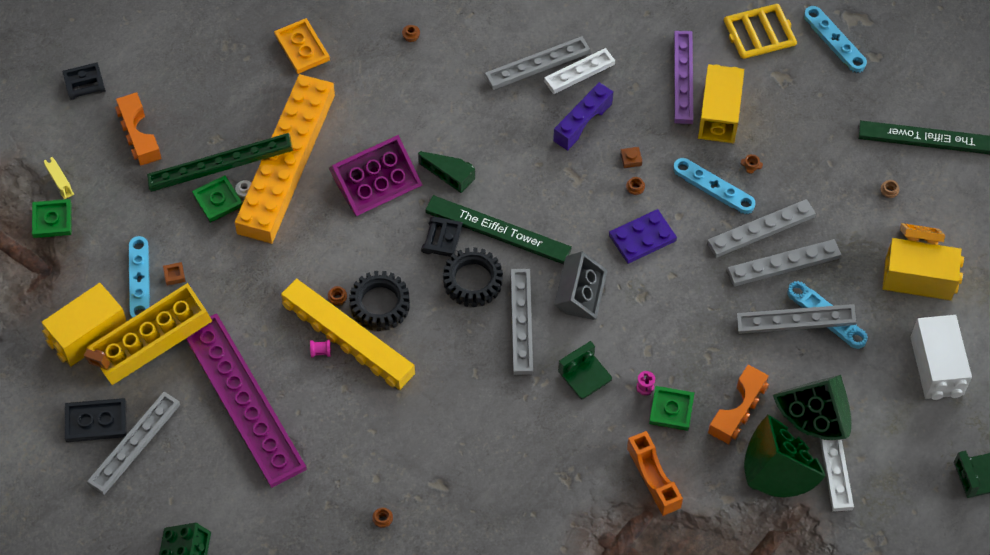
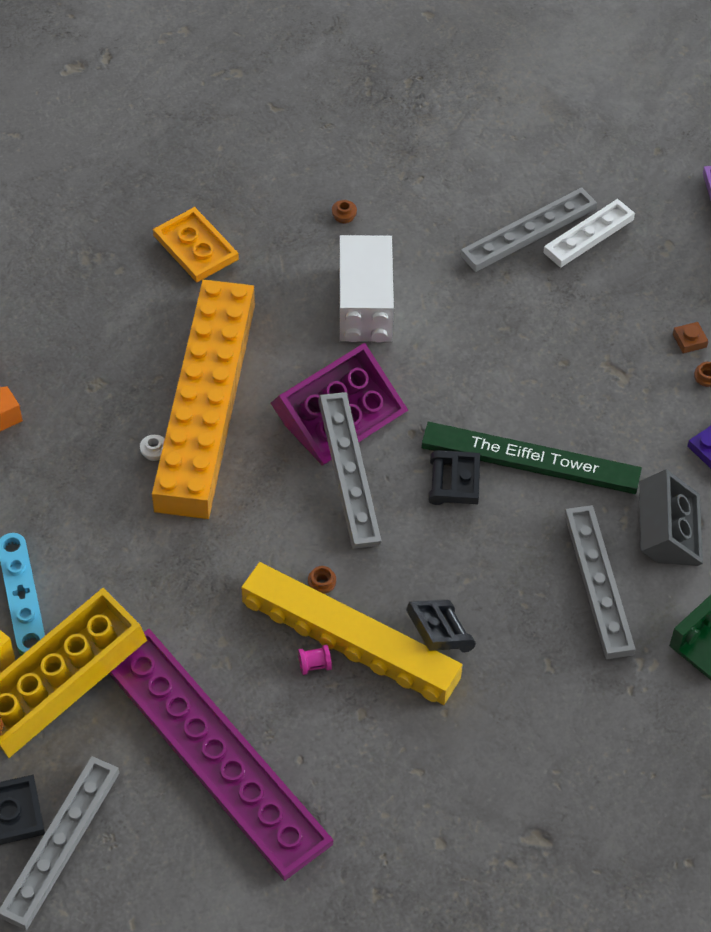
camera: 10 degrees left, 5 degrees down
(174, 273) = (73, 580): dark orange plate -> none
(217, 198) = (117, 465): green plate -> none
(219, 162) = (111, 413): dark green tile -> none
(370, 221) = (349, 470): none -> light grey plate
(379, 320) = (385, 550): black tyre -> none
(382, 512) = (467, 893): dark orange plate -> none
(401, 337) = (439, 625): none -> black plate
(410, 94) = (366, 288): none -> white brick
(449, 169) = (441, 383): dark green slope -> none
(476, 296) = (513, 555): black tyre -> none
(571, 127) = (601, 302): dark purple arch -> none

